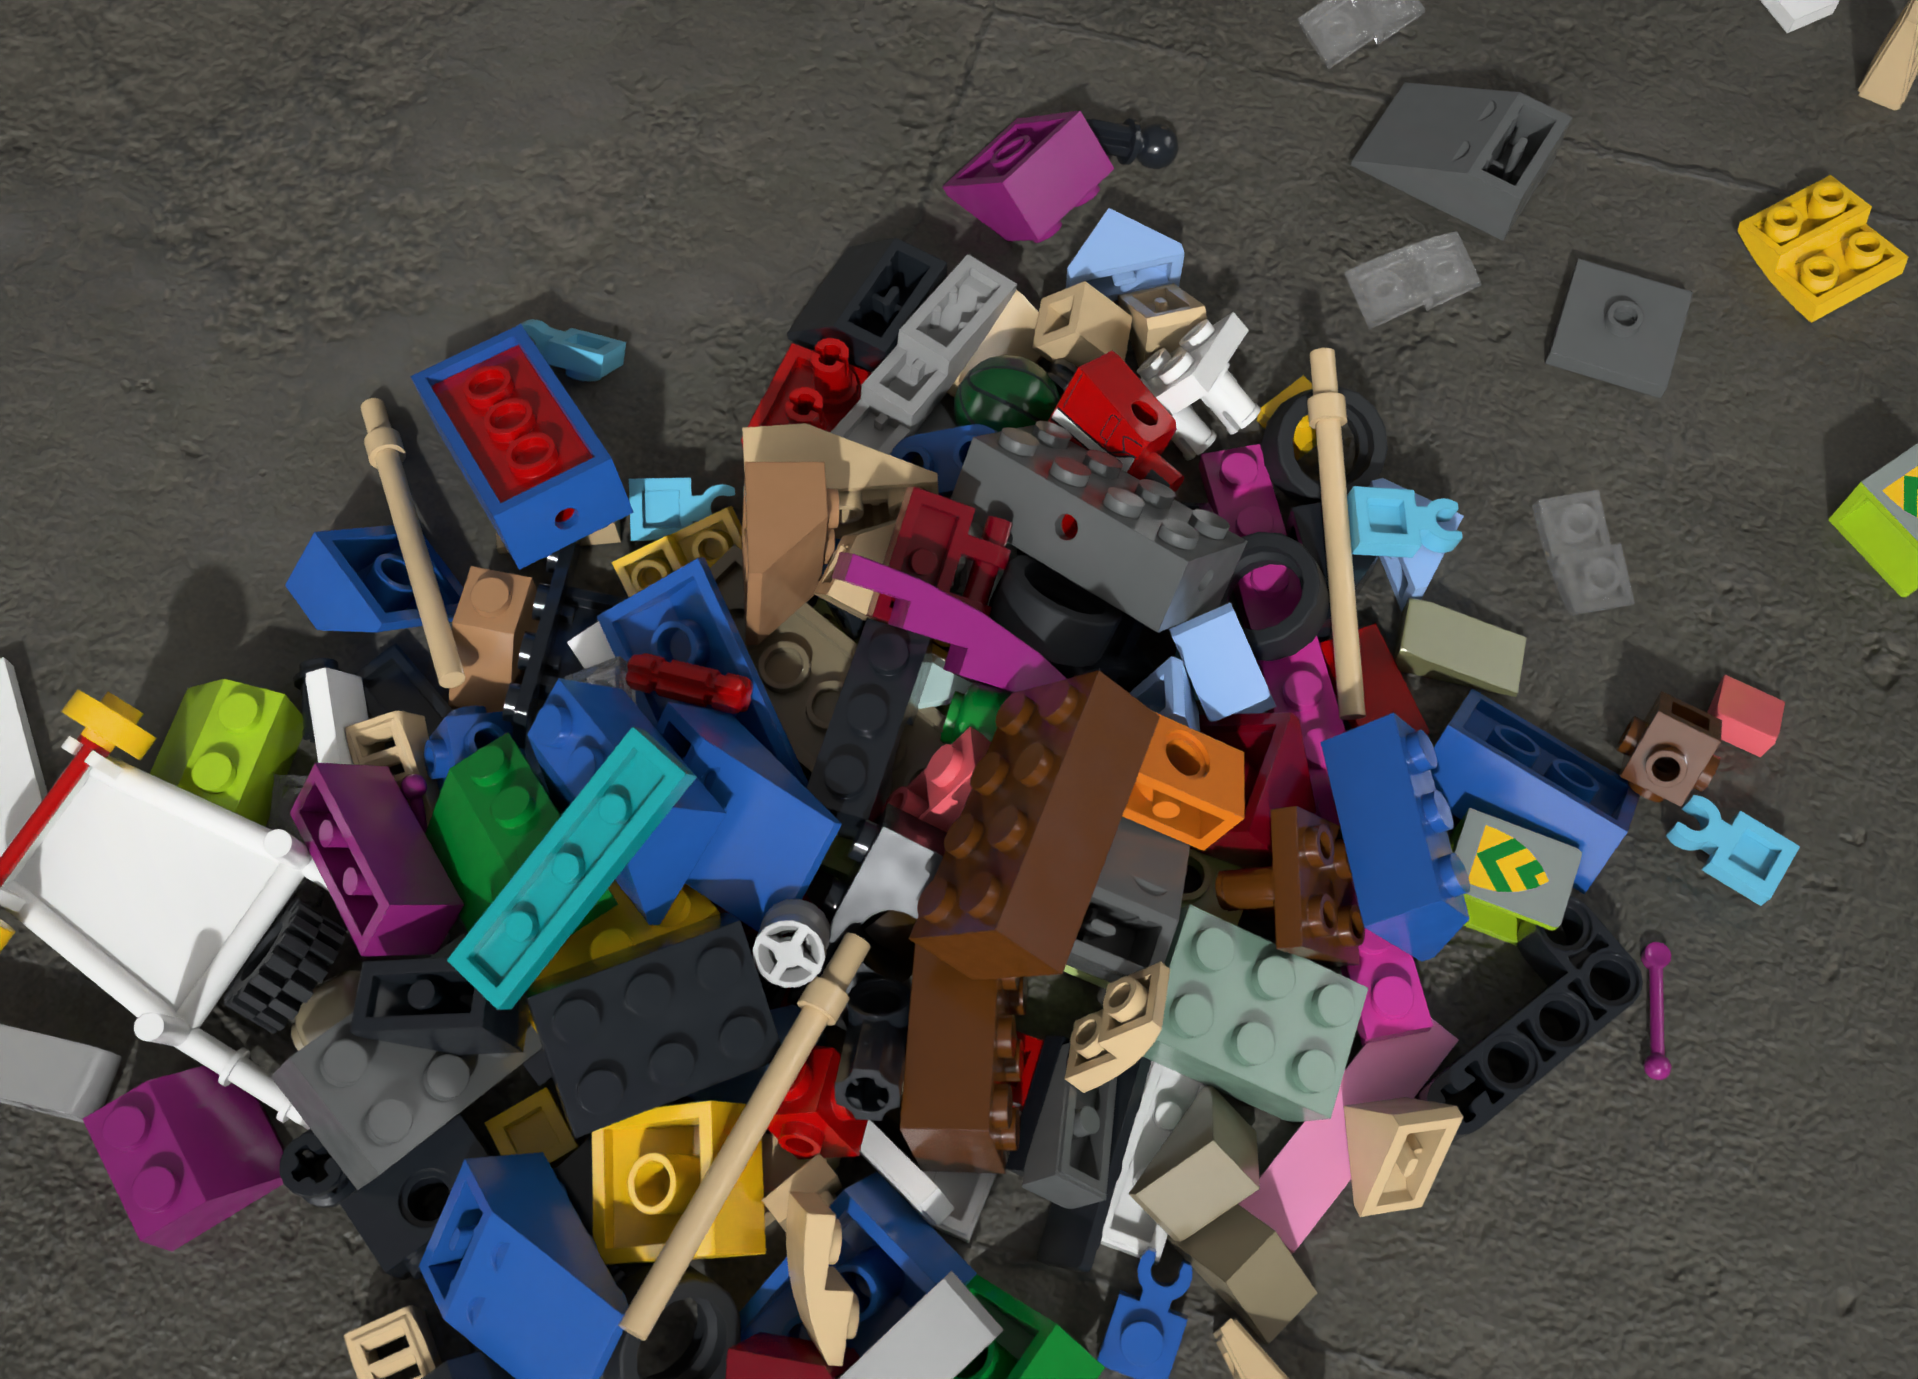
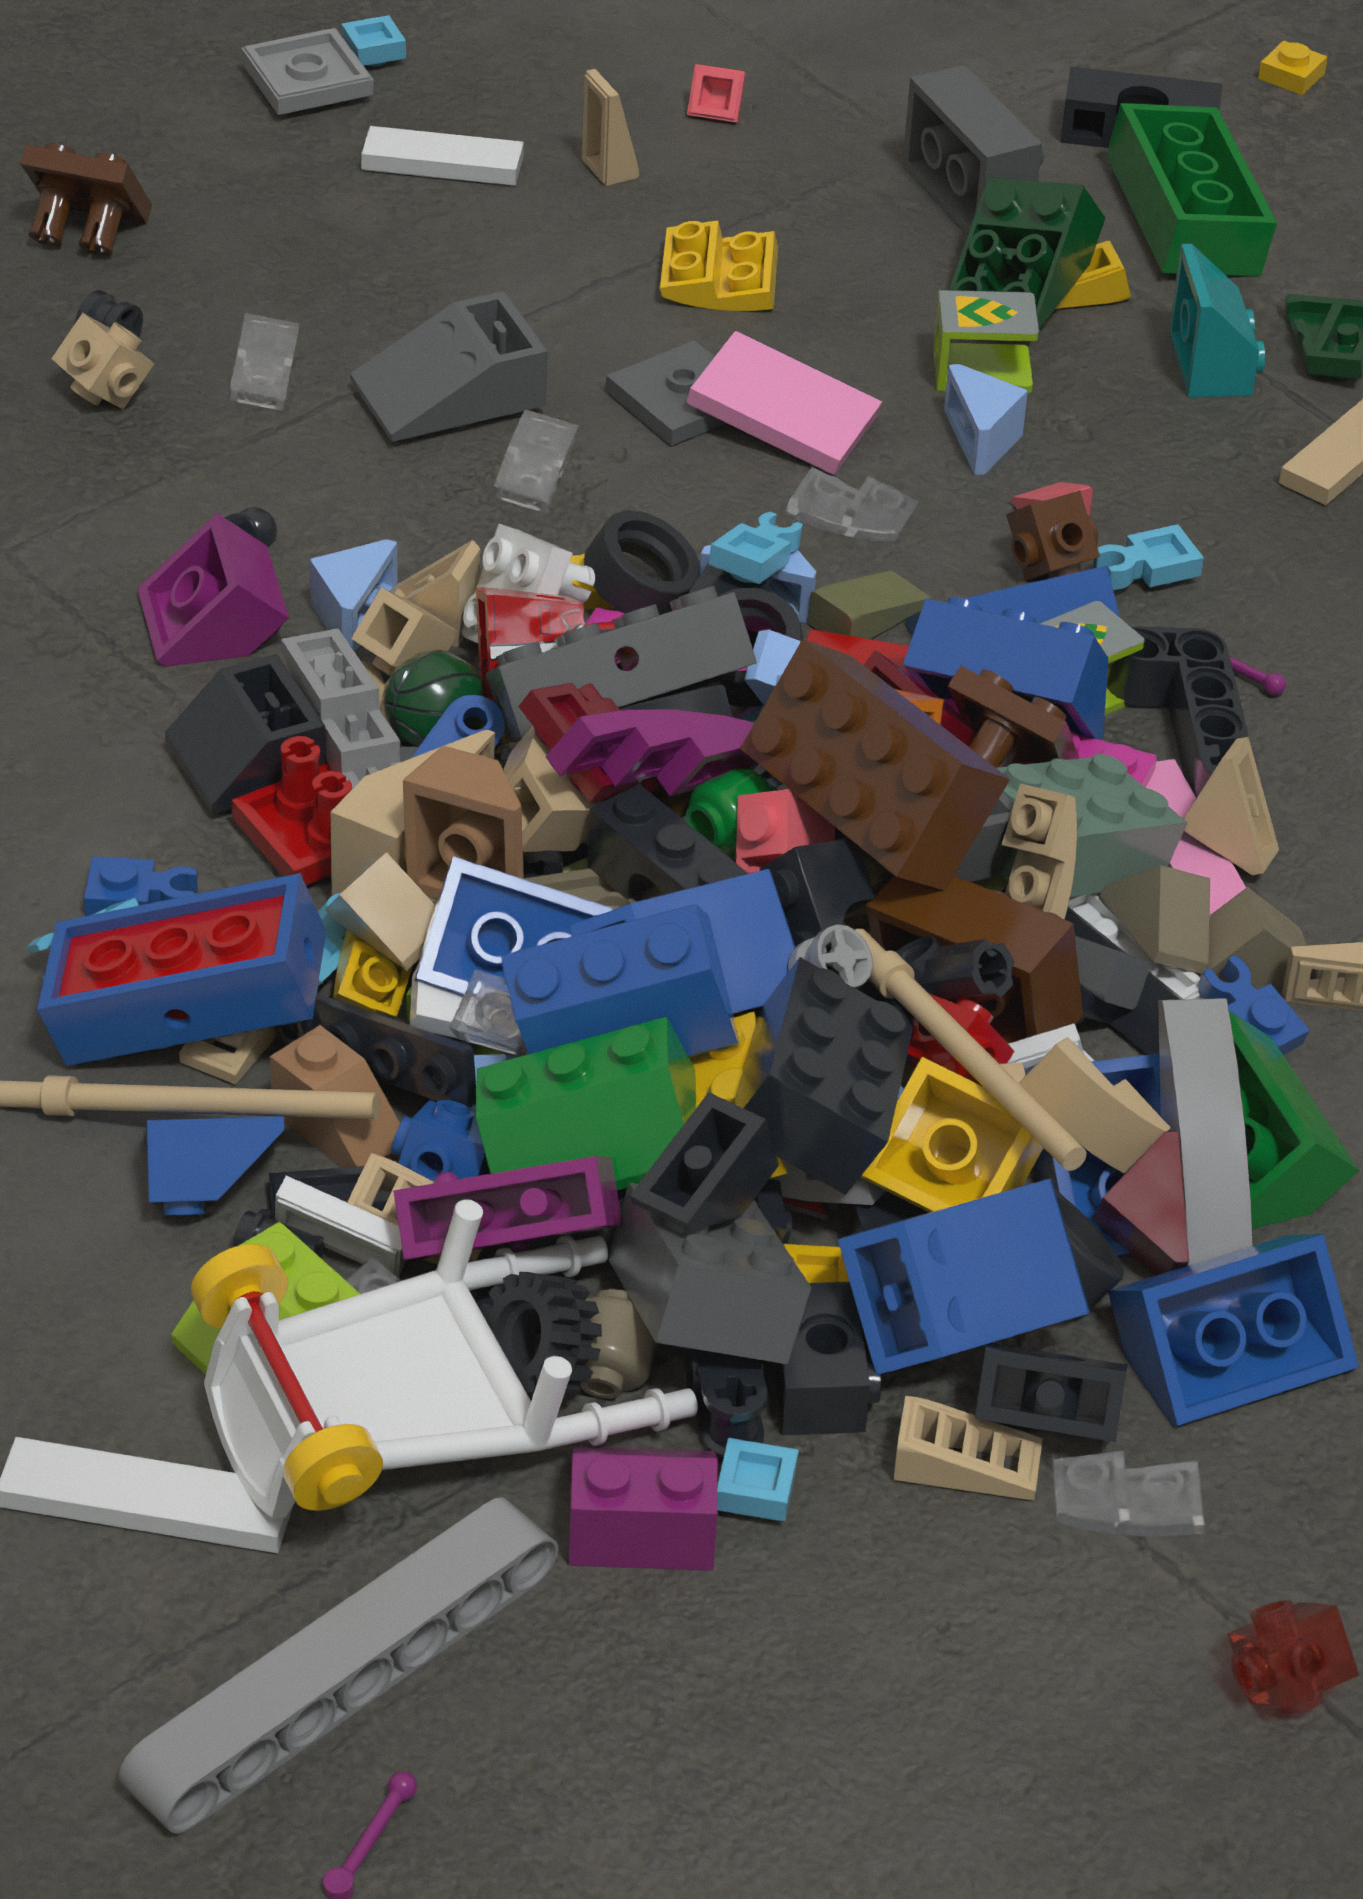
camera: 60 degrees left, 25 degrees down
(264, 1232) = (756, 1479): none -> medium azure plate
(571, 868) = (701, 976): teal plate -> none
(661, 342) = (123, 878): none -> blue plate
(689, 528) = (386, 911): none -> tan slope
(689, 683) = (546, 929): red axle -> none
(1327, 415) = (639, 526): tan bar -> none
(1668, 414) = (784, 402): none -> bright pink tile
(1810, 589) = (983, 415): none -> light blue slope

